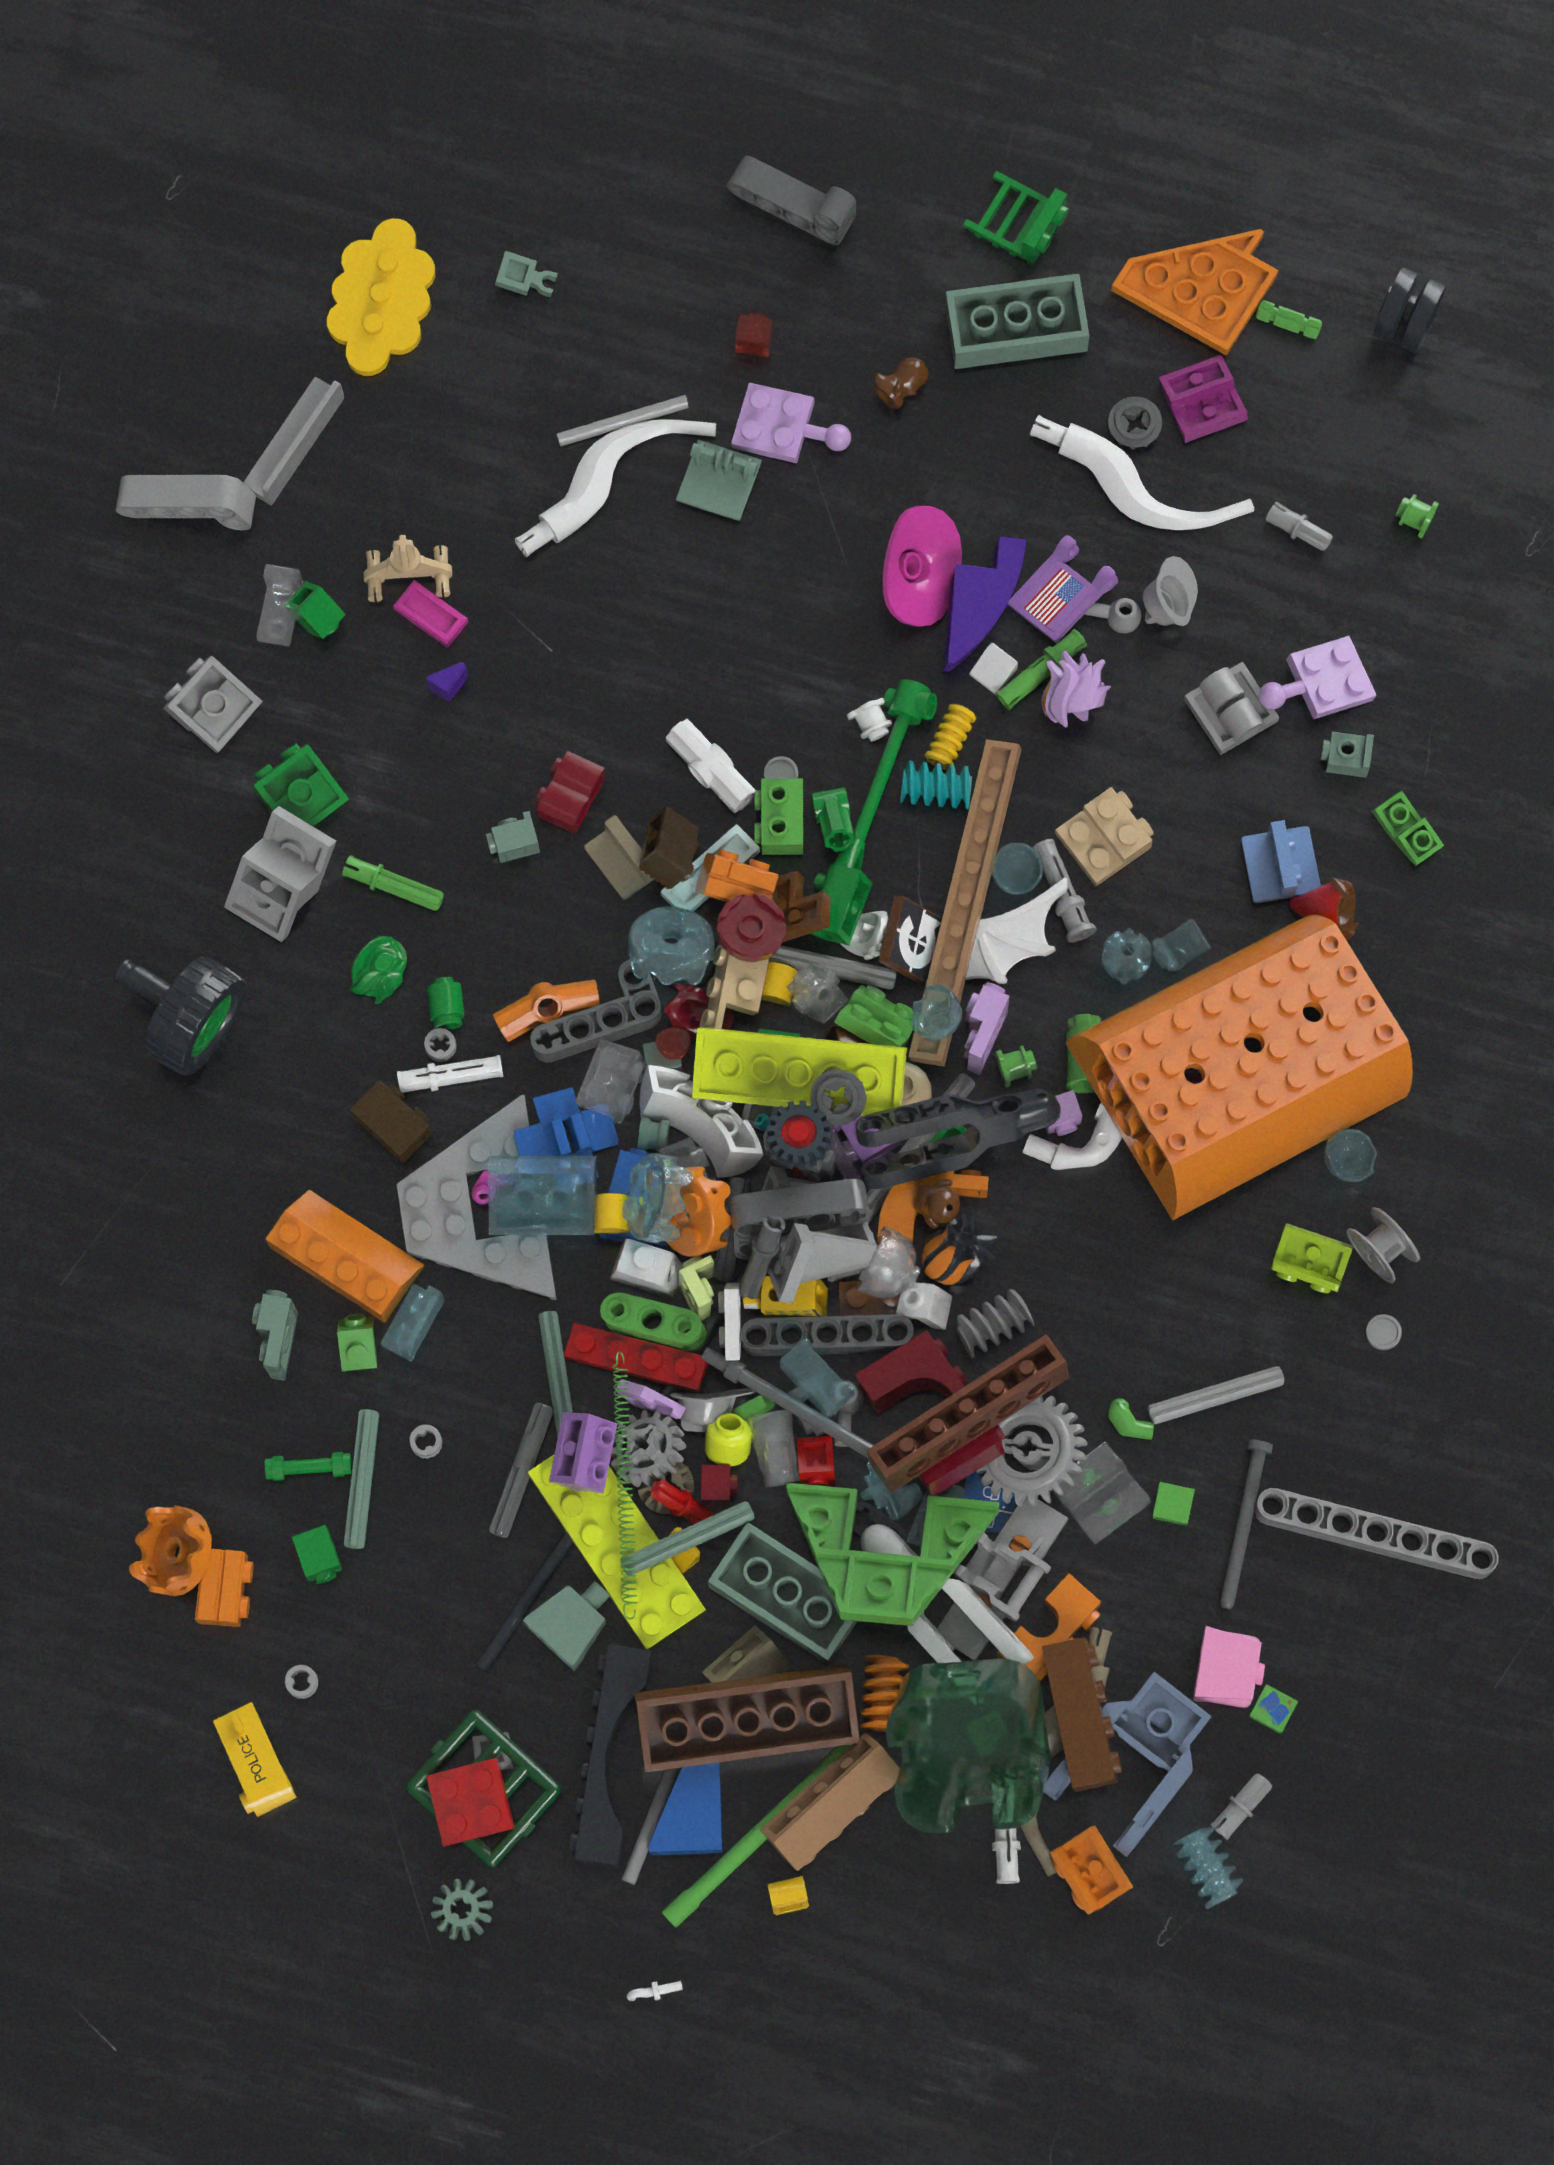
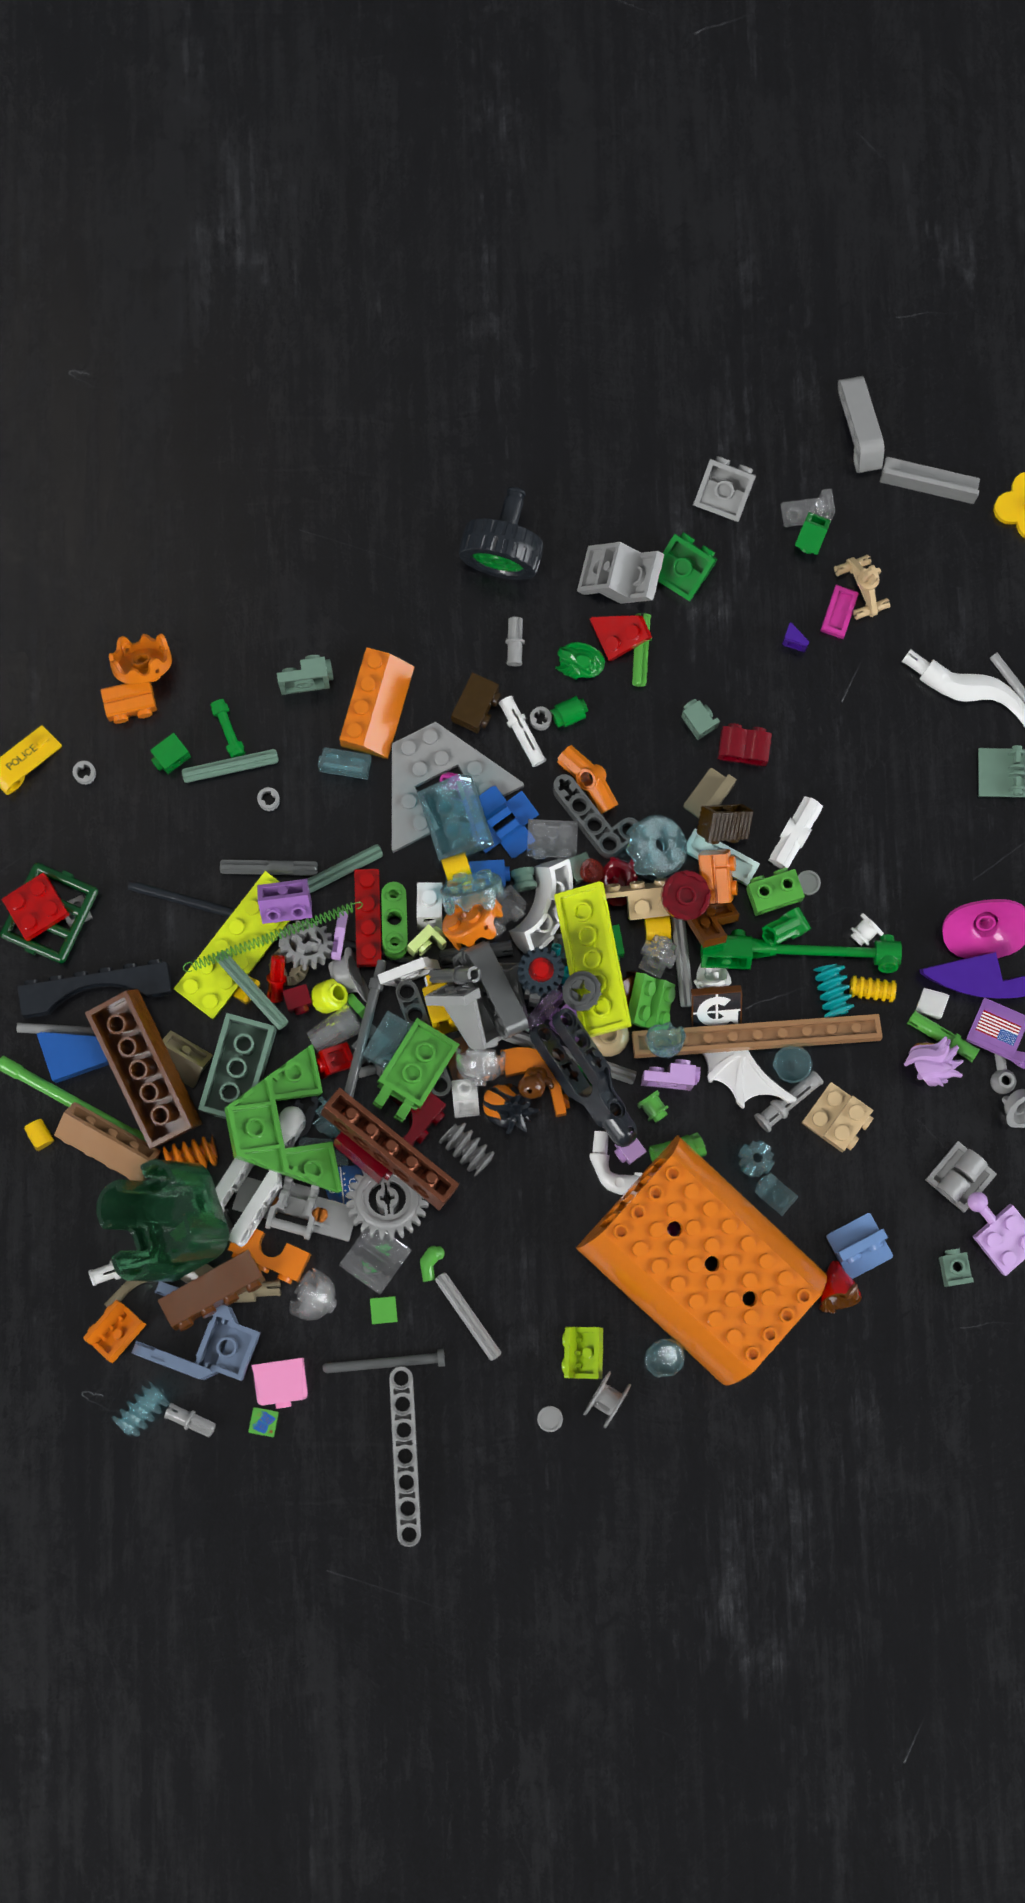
camera: 65 degrees right, 5 degrees up
(322, 1044) = (515, 641): none -> light grey axle
(357, 1342) = (320, 731): bright green bracket -> none
(362, 902) = (620, 633): none -> red wing
(569, 1622) = (175, 932): sand green torso -> none
(867, 1353) = (415, 1068): none -> bright green tile
(1126, 1587) = (314, 1296): none -> clear cylinder
(1407, 829) = (916, 1327): bright green slope -> none

